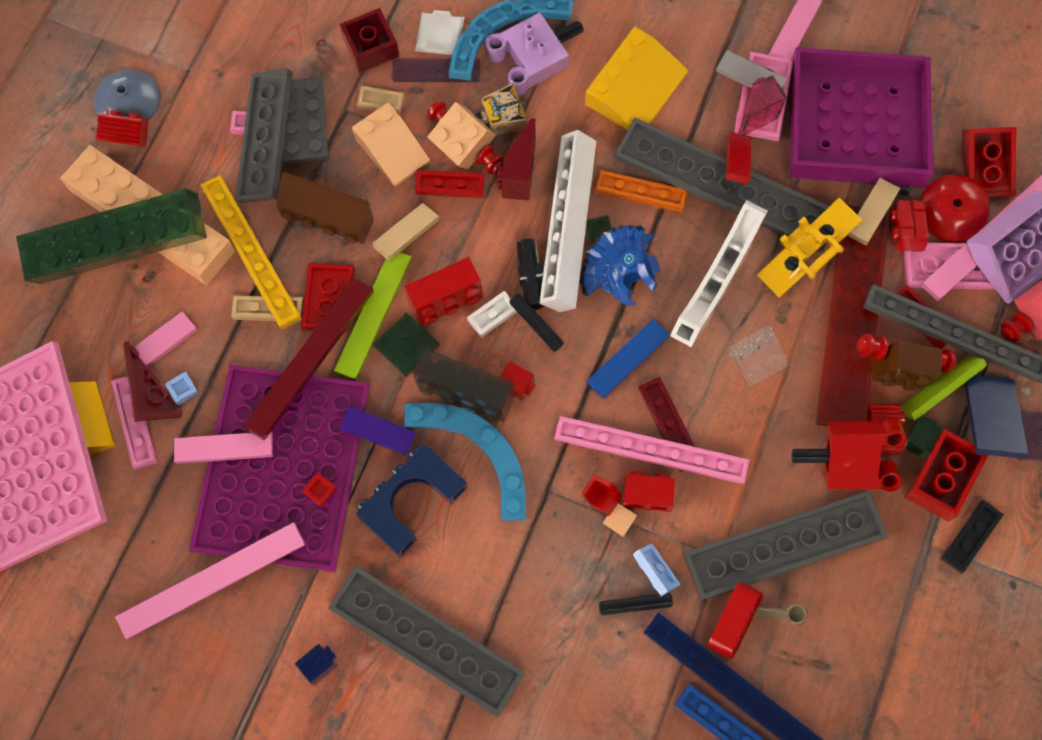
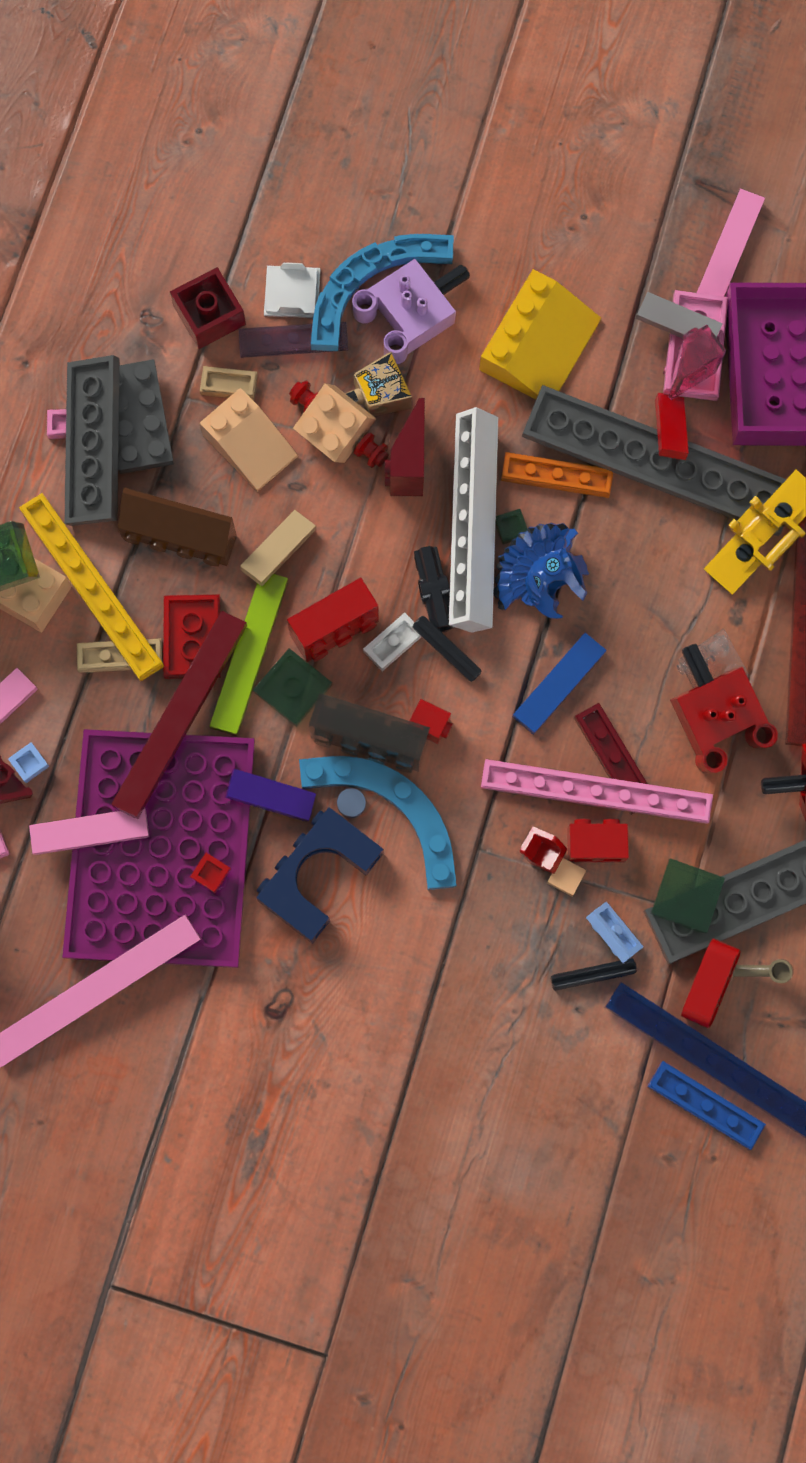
camera: 10 degrees left, 5 degrees up
(317, 663) = (230, 1076): clear blue brick -> none
(427, 641) = (354, 1038): dark grey plate -> none
(444, 443) = (351, 803): none -> sand blue tile
(450, 184) = (325, 483): red plate -> none
(718, 278) = (661, 574): white arch -> none
(721, 543) = (687, 895): none -> clear green tile
(760, 390) = (719, 710): none -> red piece

